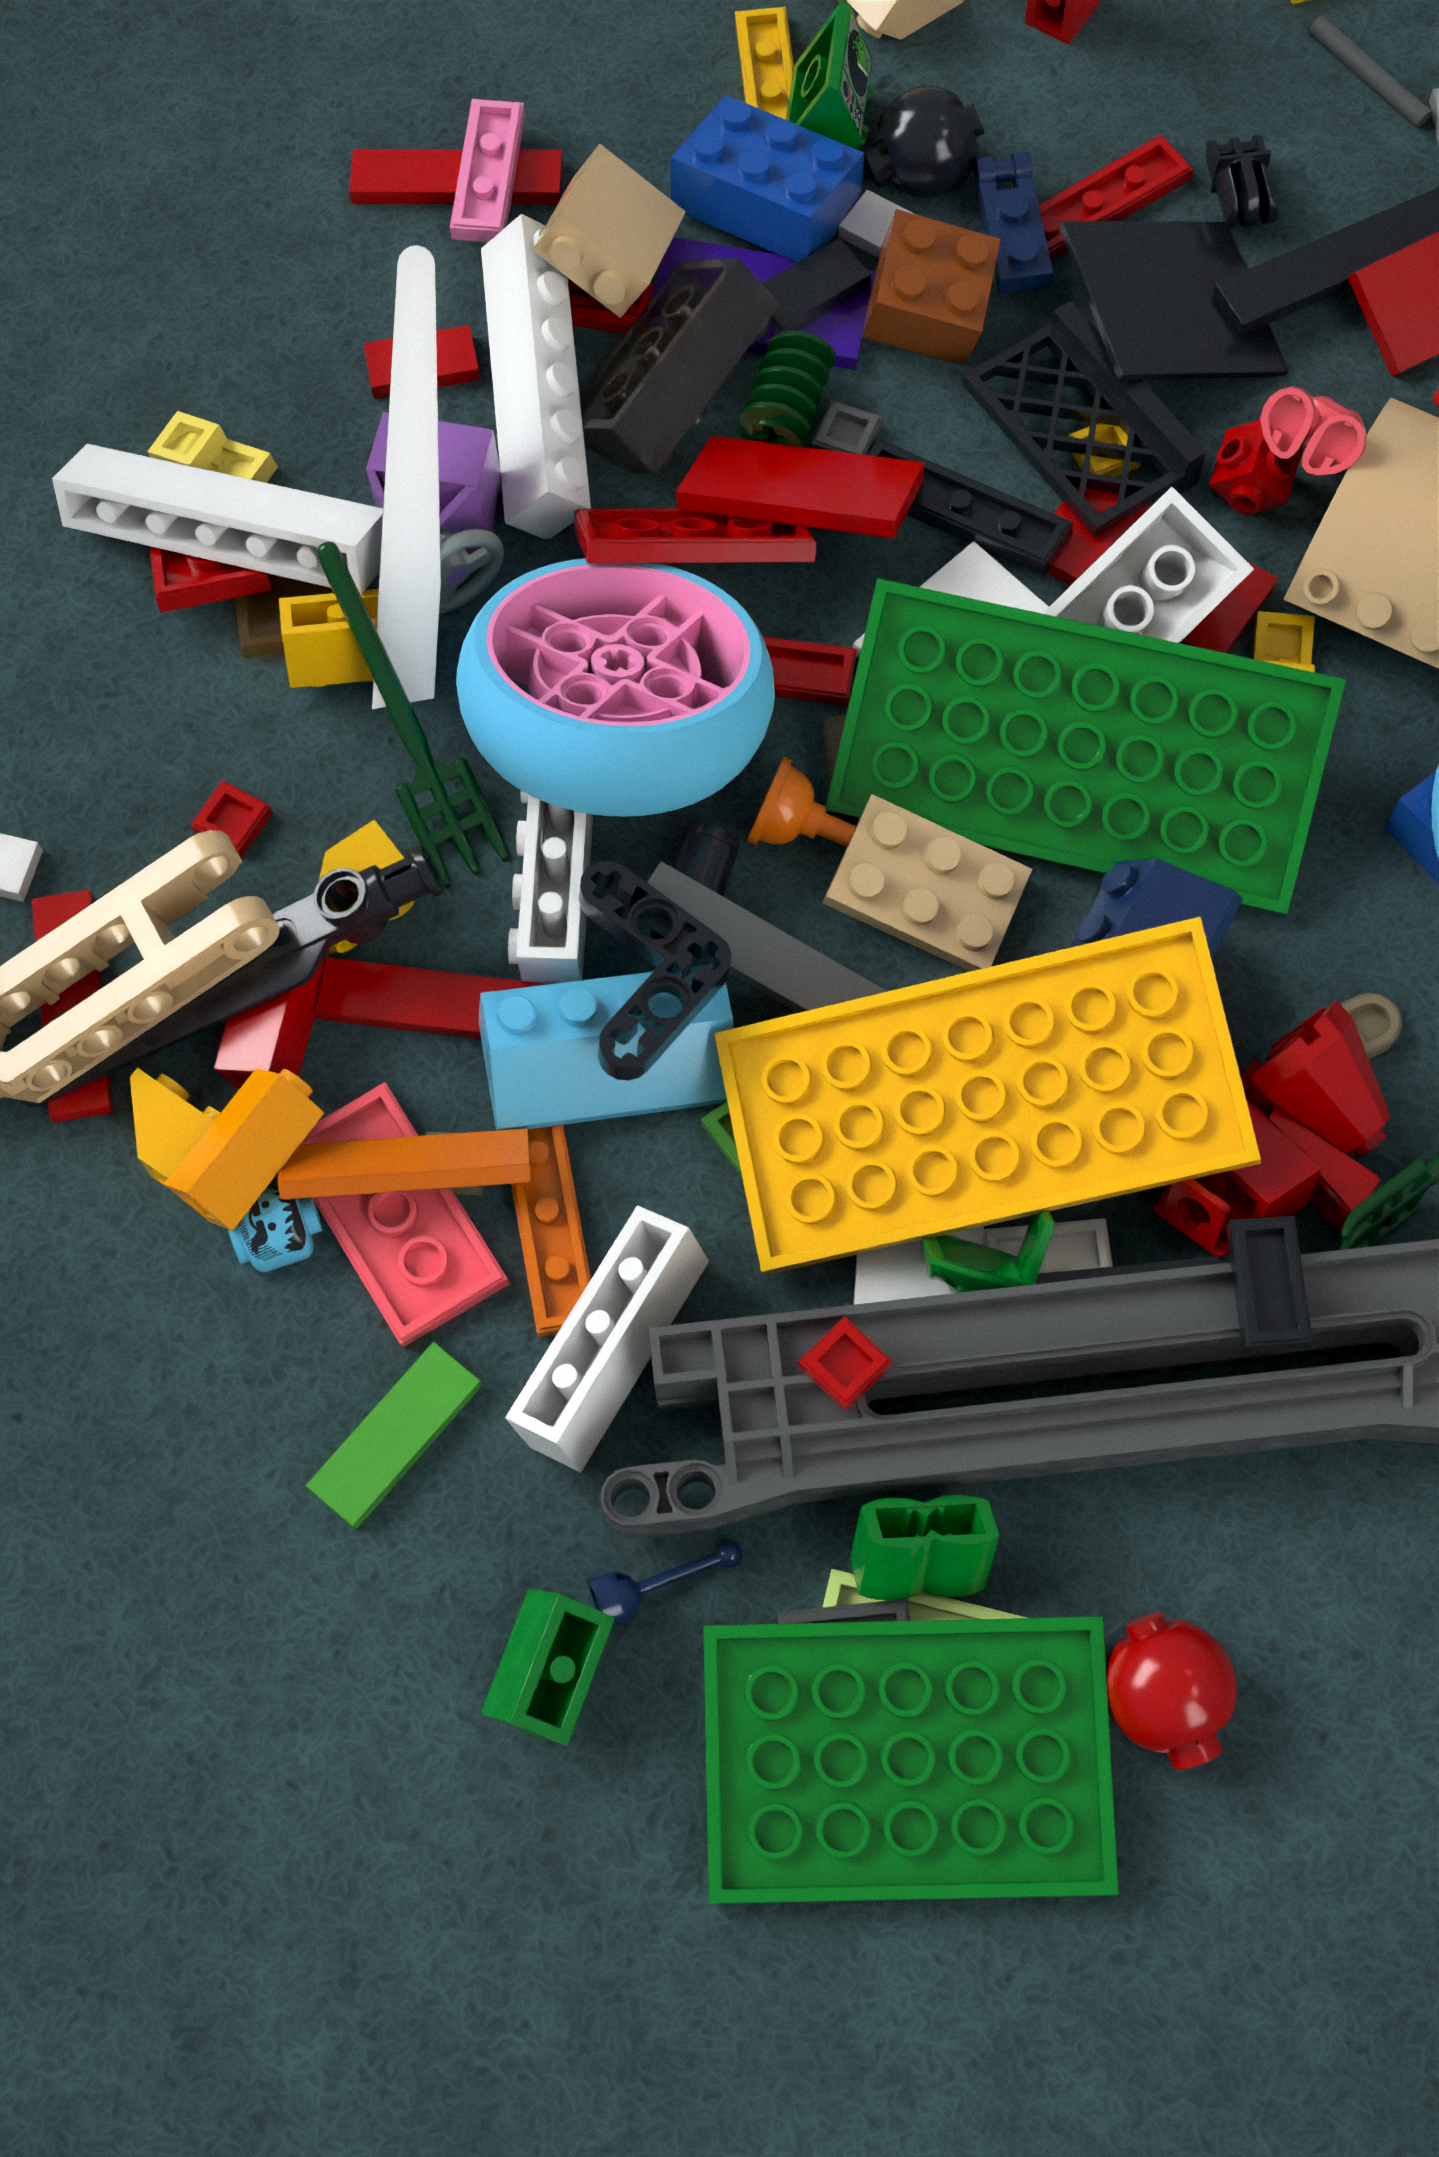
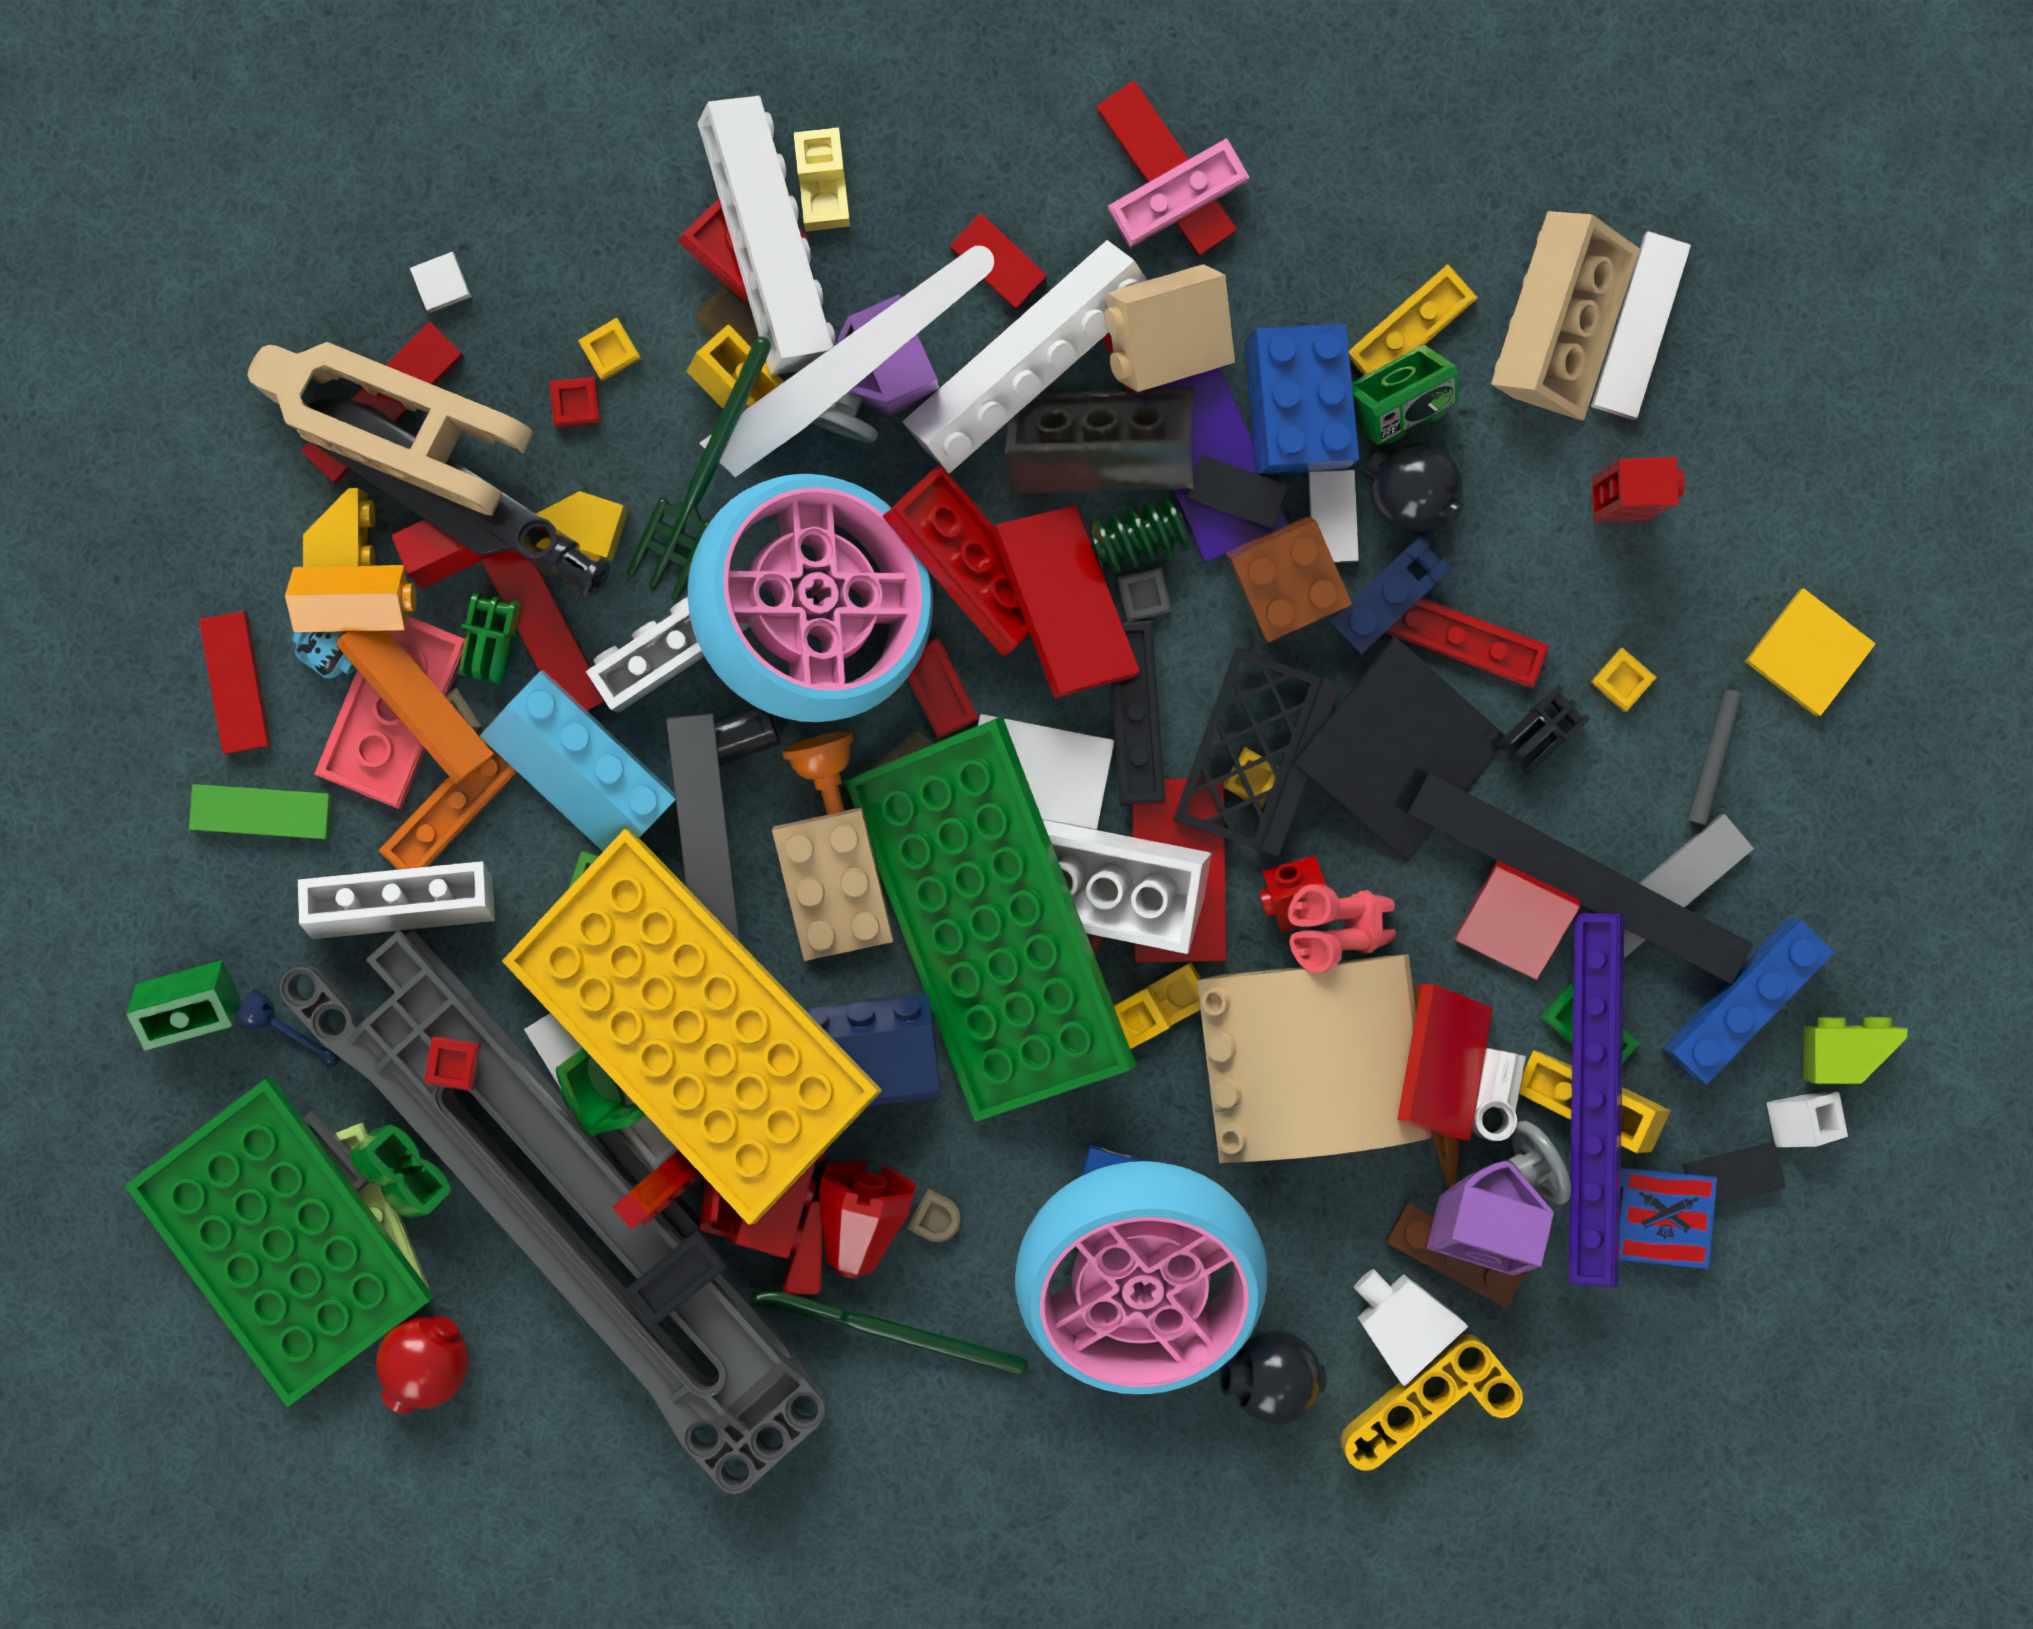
camera: 50 degrees right, 20 degrees up
(207, 752) = (609, 349): none -> yellow tile
(233, 1363) = (235, 682): none -> red tile
(397, 1050) = (486, 647): none -> green arm
(669, 955) = (646, 768): black beam -> none
(1143, 1241) = (655, 1190): none -> red piece
(1239, 100) = (1623, 679): none -> yellow tile

